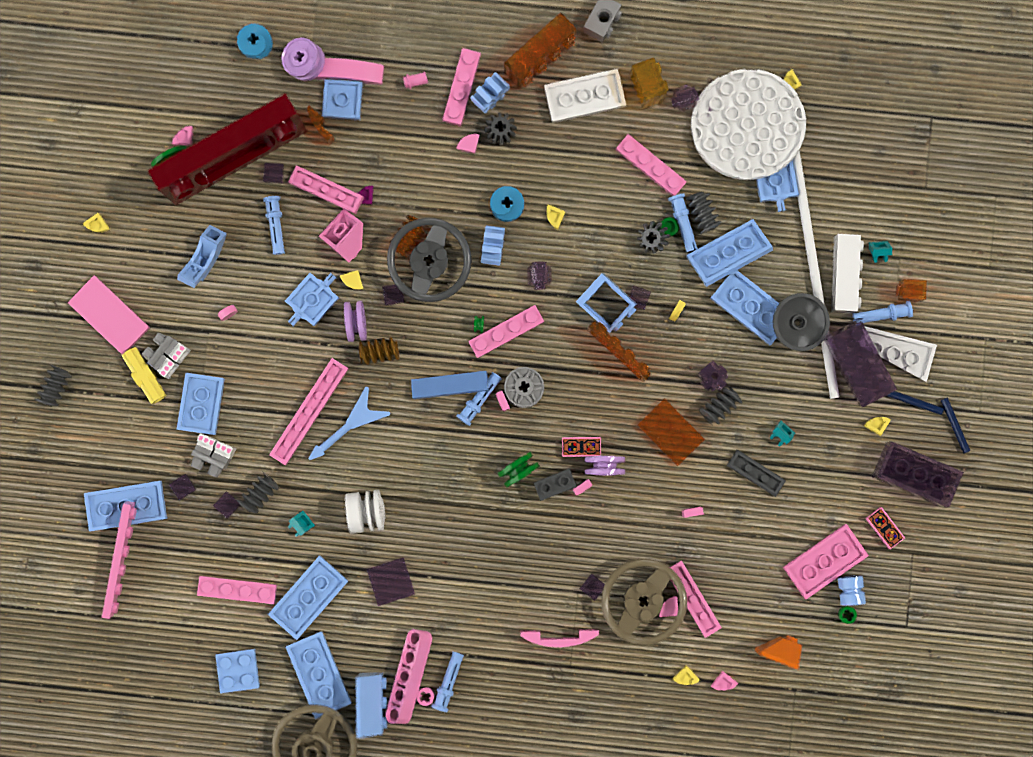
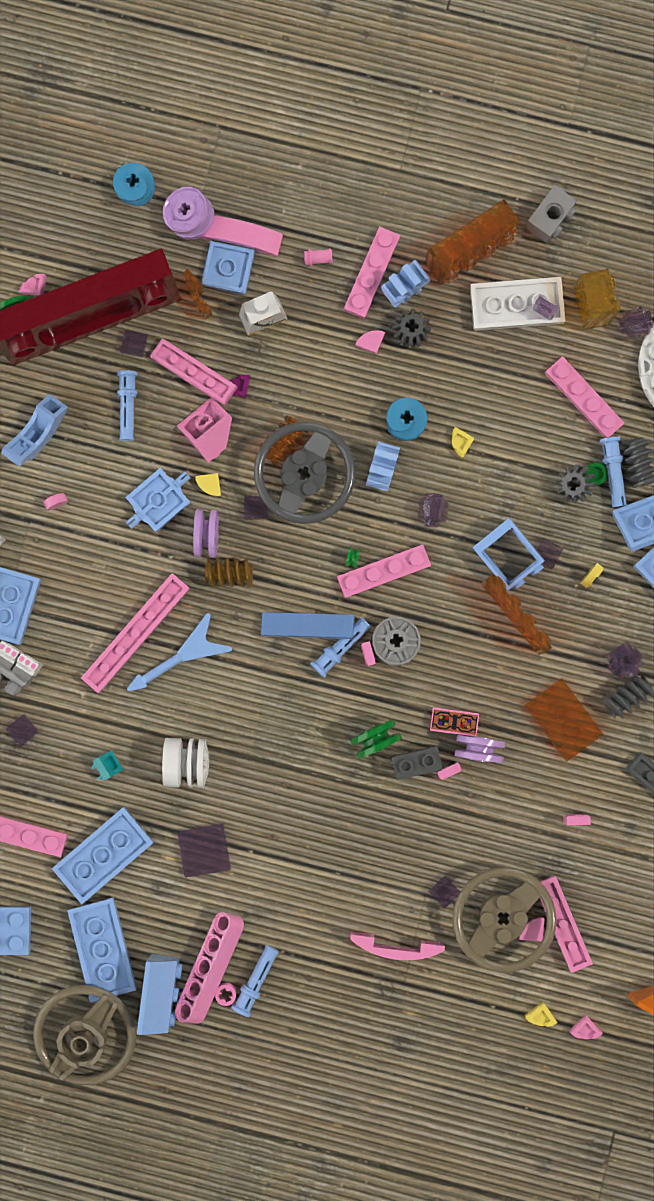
camera: 10 degrees right, 0 degrees up
(259, 493) = (61, 723): dark grey piece -> none
(375, 133) = (261, 313): none -> white torso
(607, 96) = (545, 308): none -> clear purple tile

